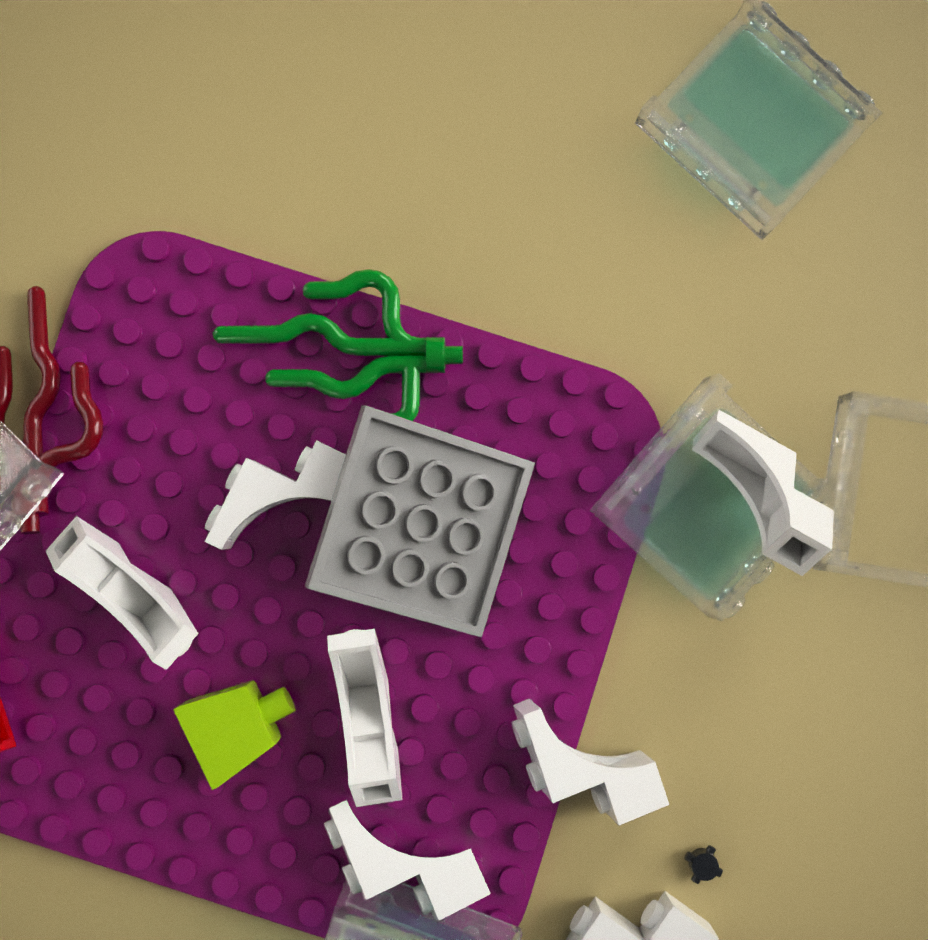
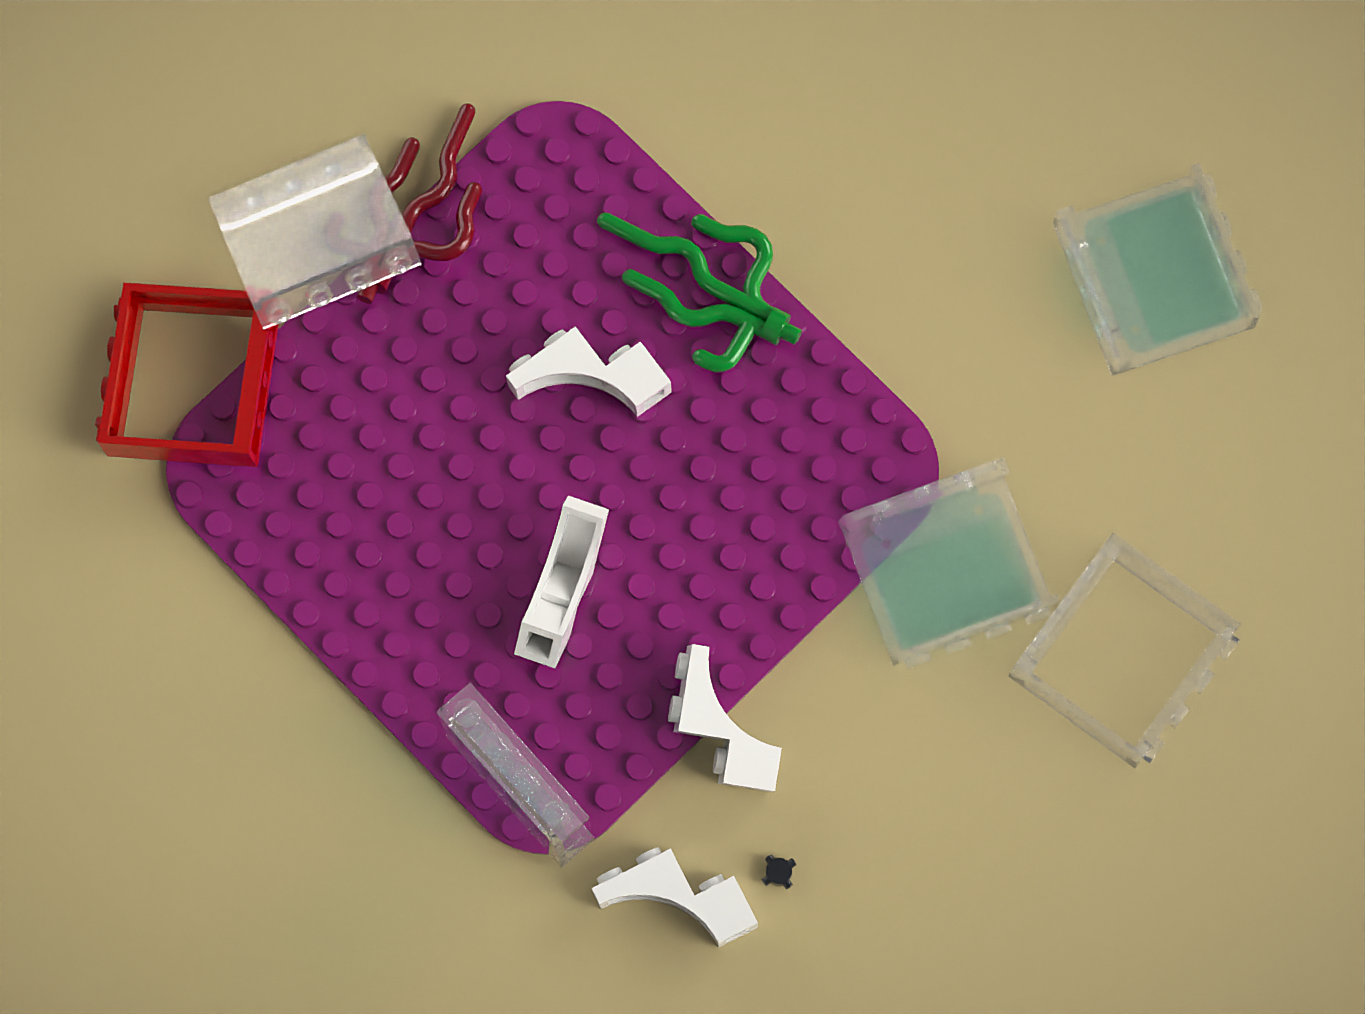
camera: 35 degrees right, 10 degrees down
(131, 595) = (418, 381): white arch -> none
(232, 727) = (446, 541): lime torso -> none
(419, 522) = (691, 452): light grey plate -> none
(444, 882) = (558, 748): white arch -> none
(791, 525) = (995, 555): white arch -> none

